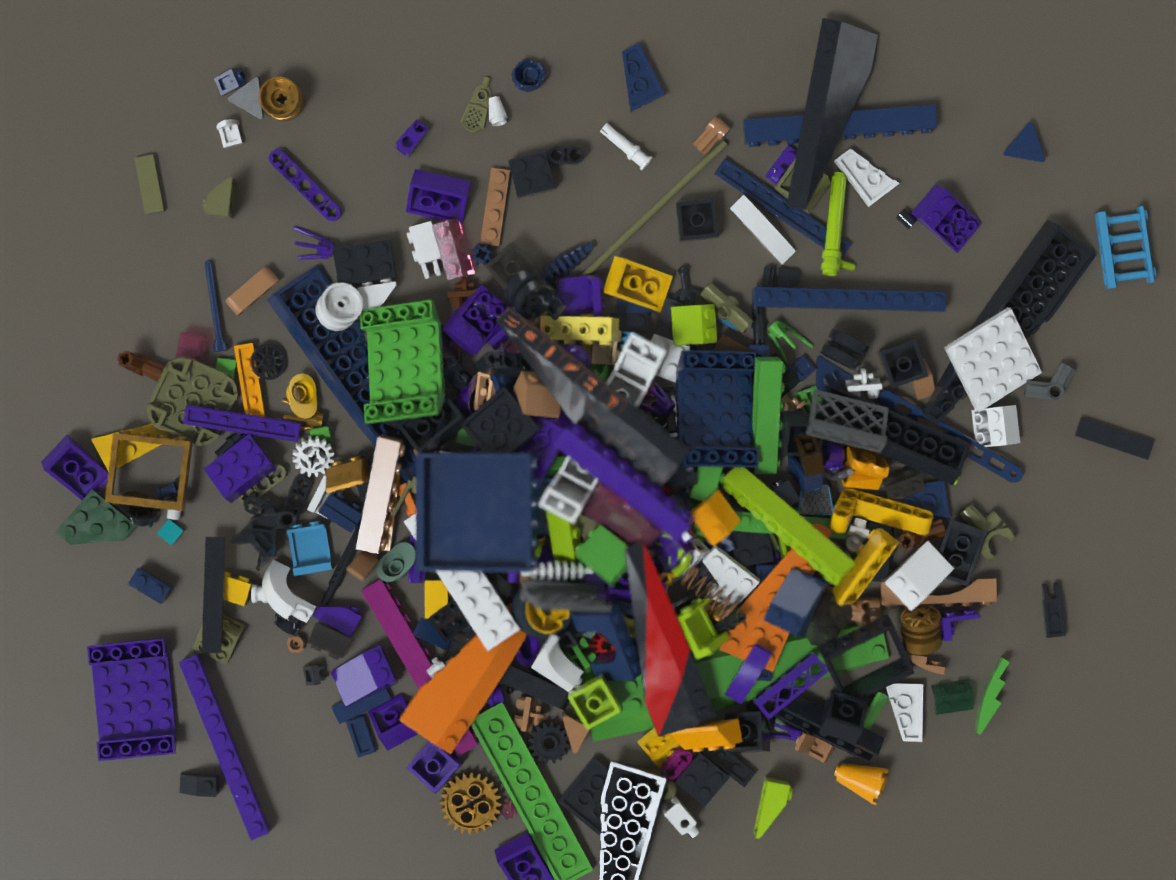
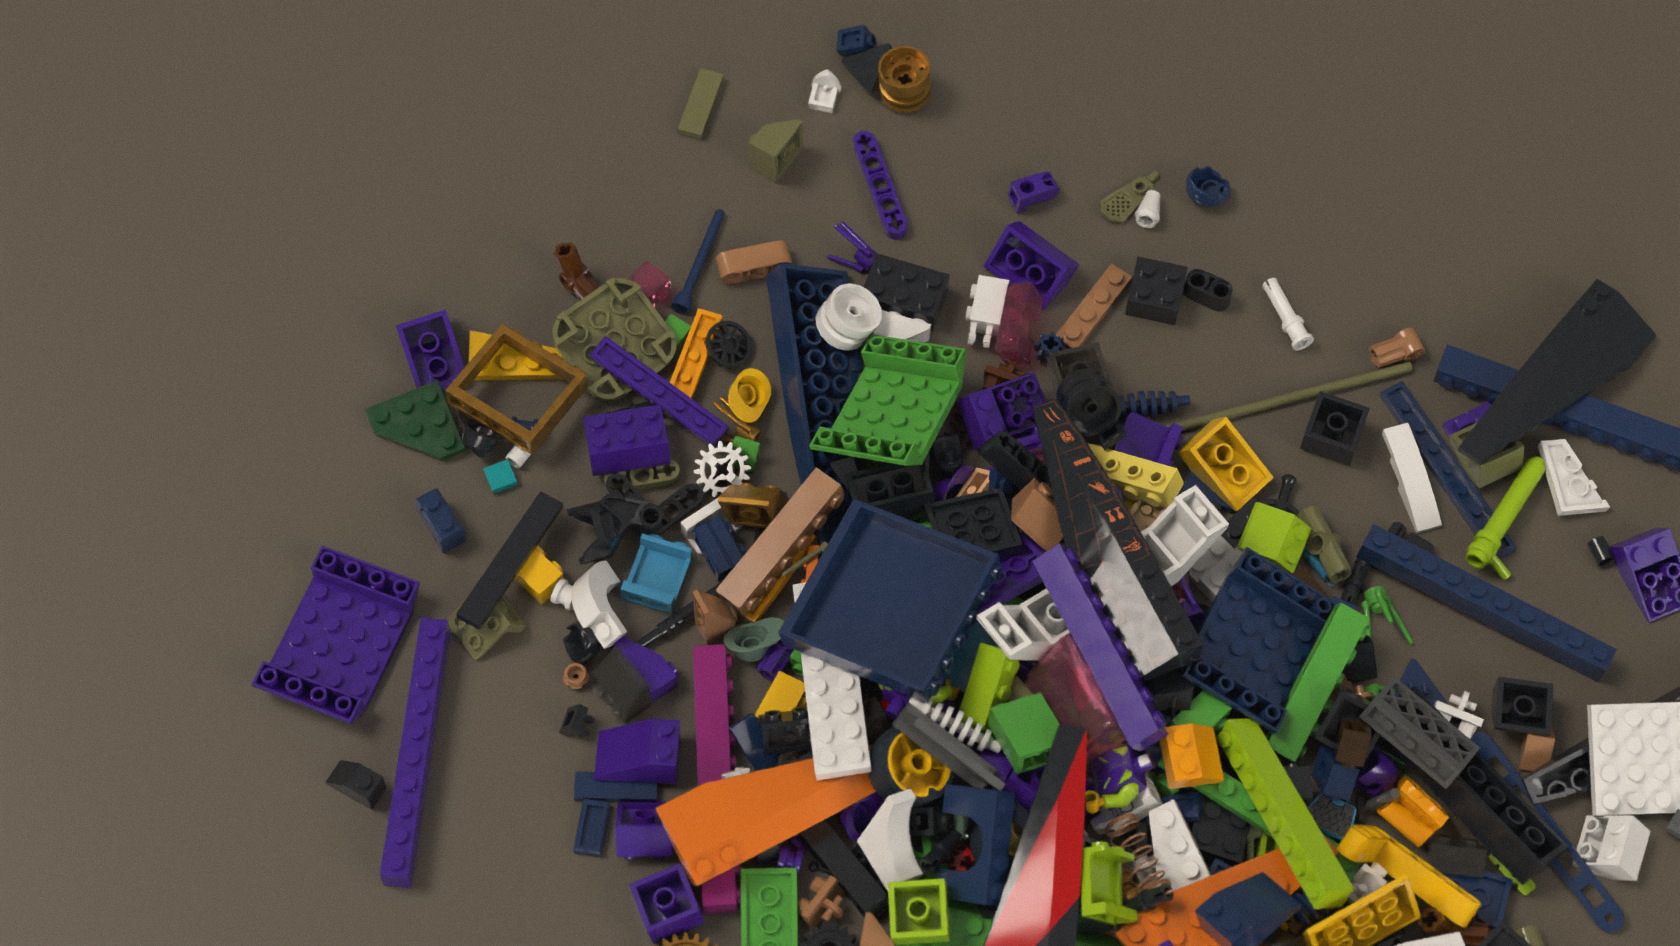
camera: 25 degrees right, 25 degrees down
(587, 651) = (941, 852): none -> black pin
(640, 78) = (1340, 252): dark blue wing -> none
(803, 368) = (1388, 662): dark blue tile -> none
(845, 348) = (1453, 656): black wheel -> none

